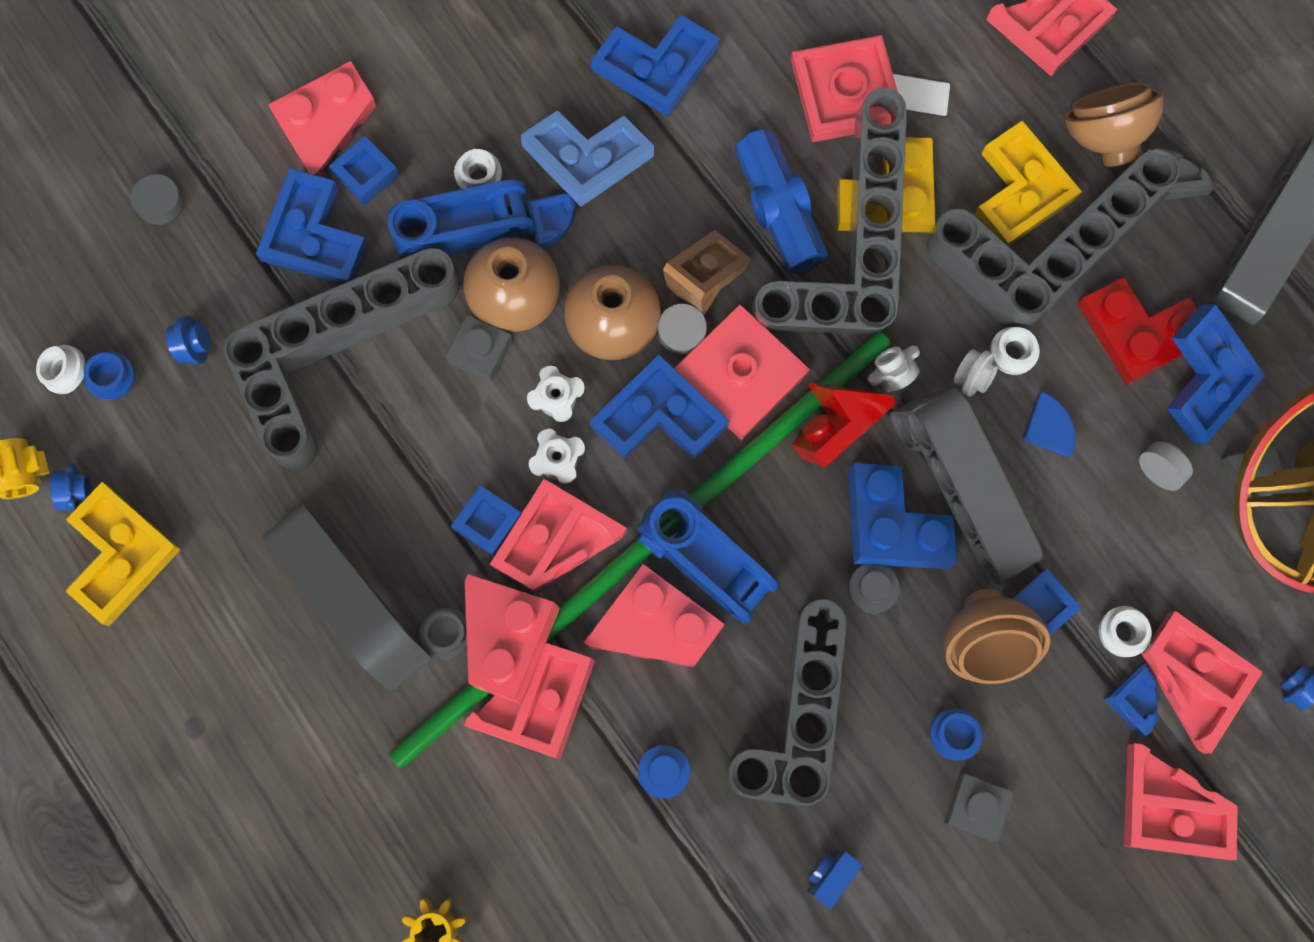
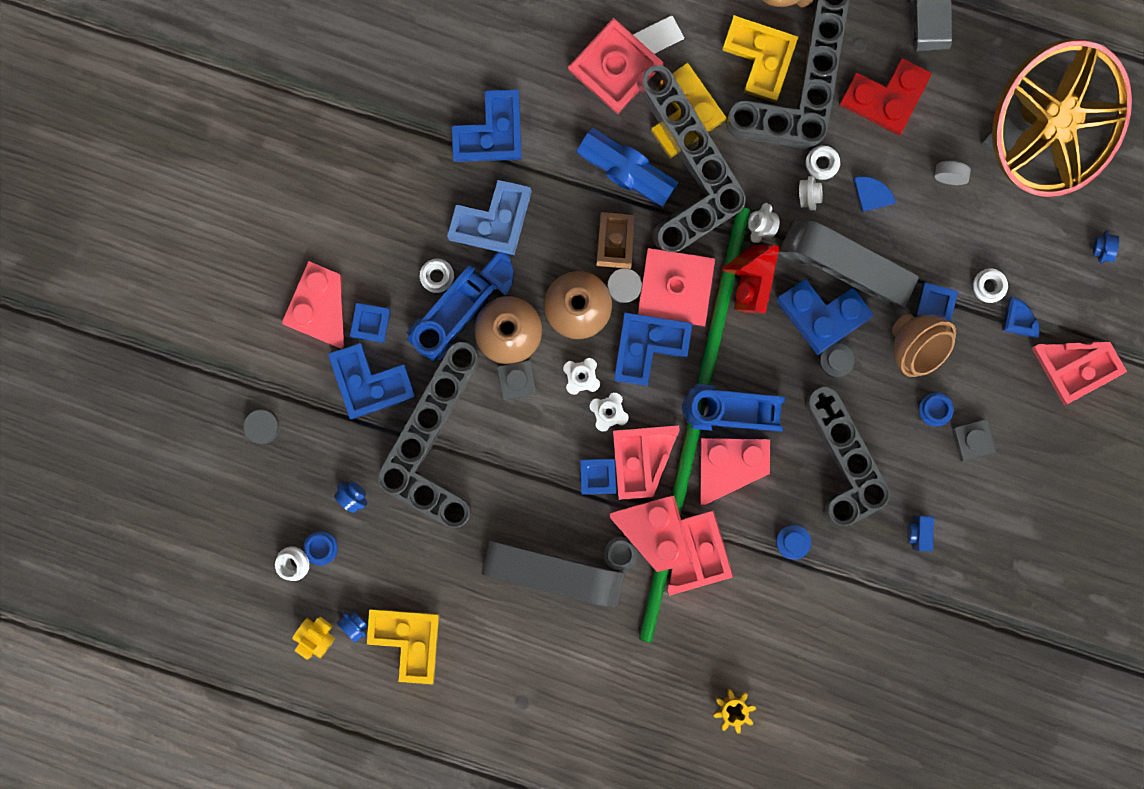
camera: 35 degrees left, 10 degrees up
(1199, 678) = (1047, 284): coral wing -> none
(1222, 377) = (952, 98): blue plate -> none

